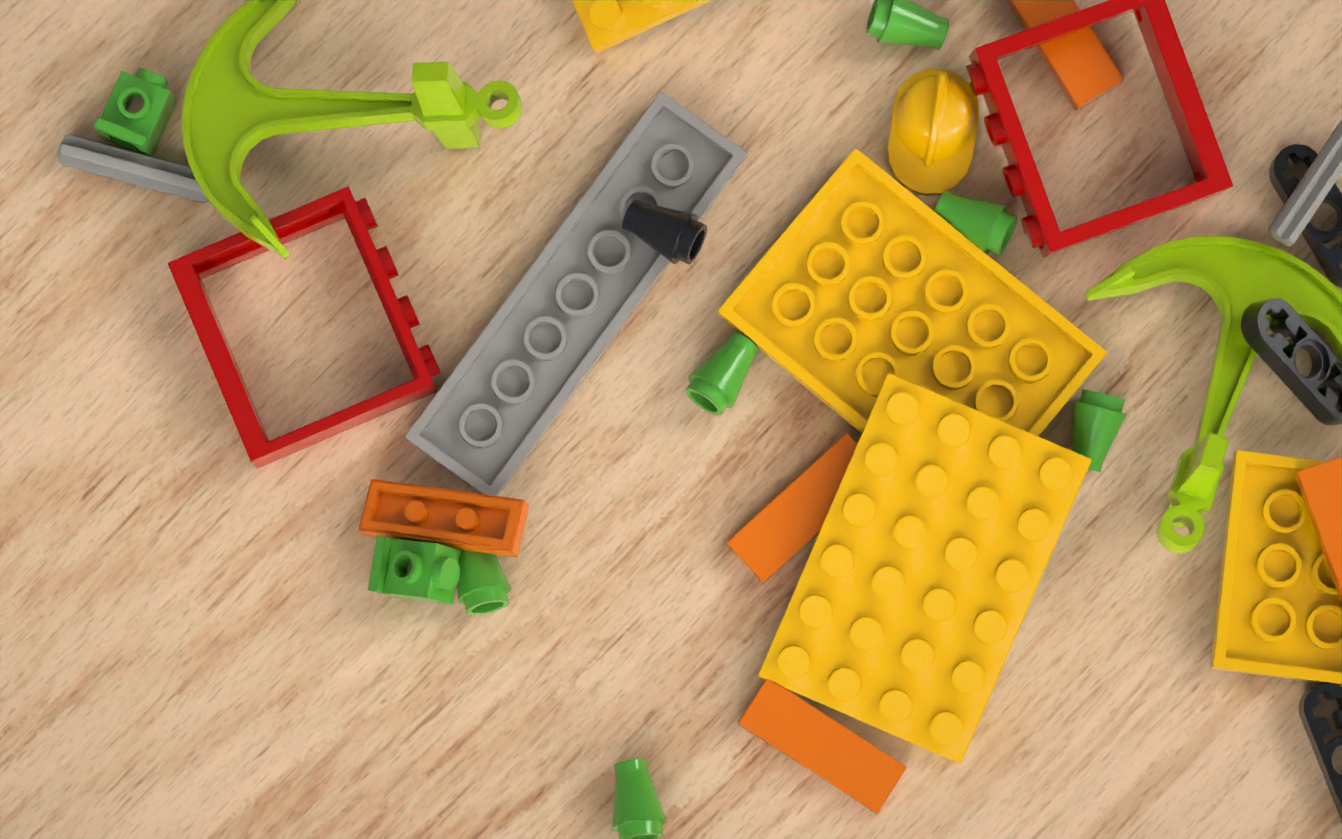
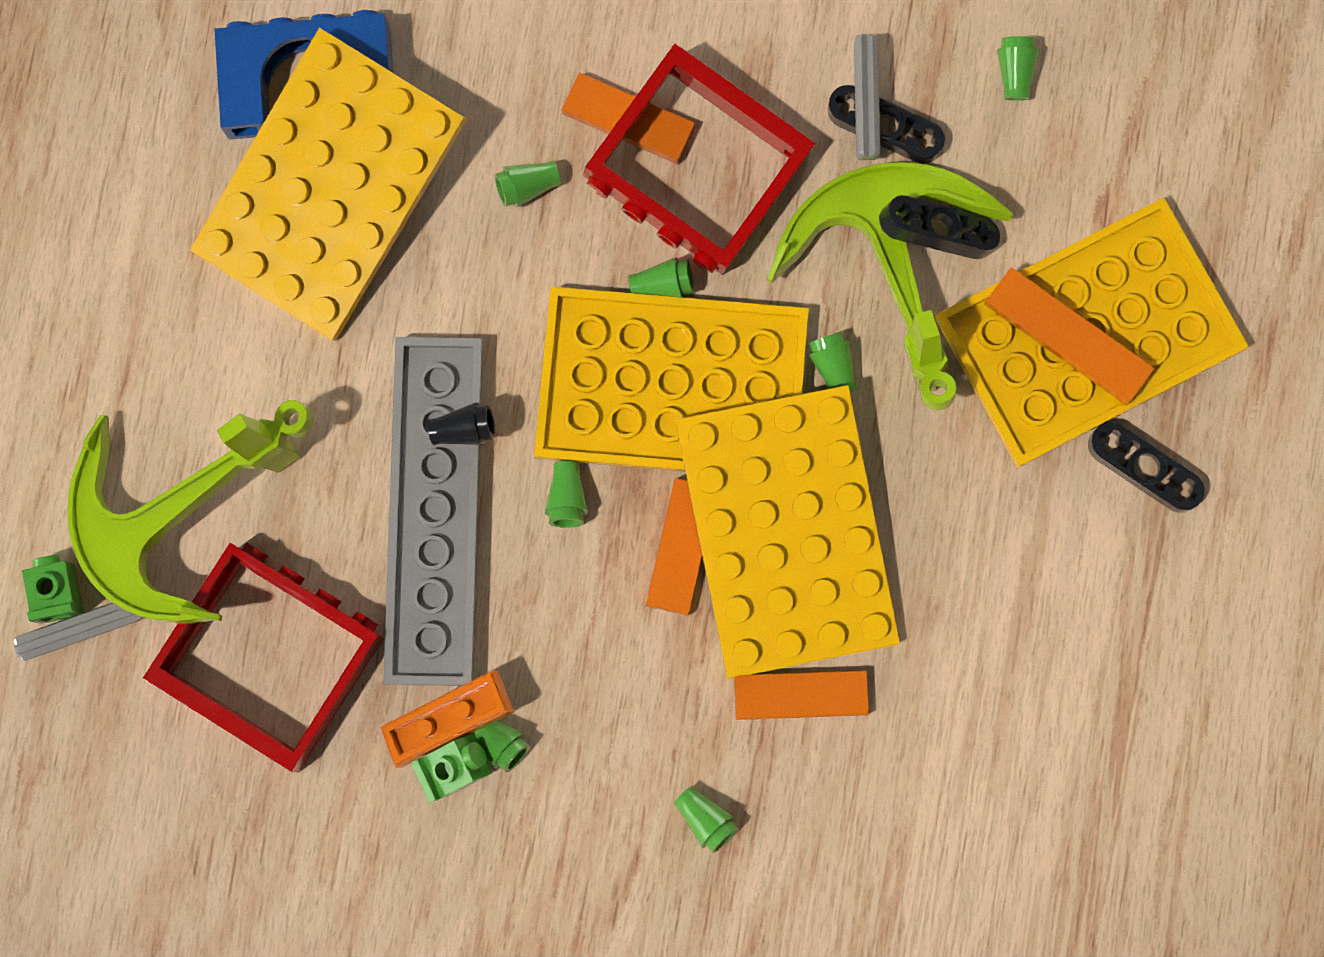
camera: 30 degrees left, 0 degrees up
(933, 131) = (593, 241): yellow piece -> none

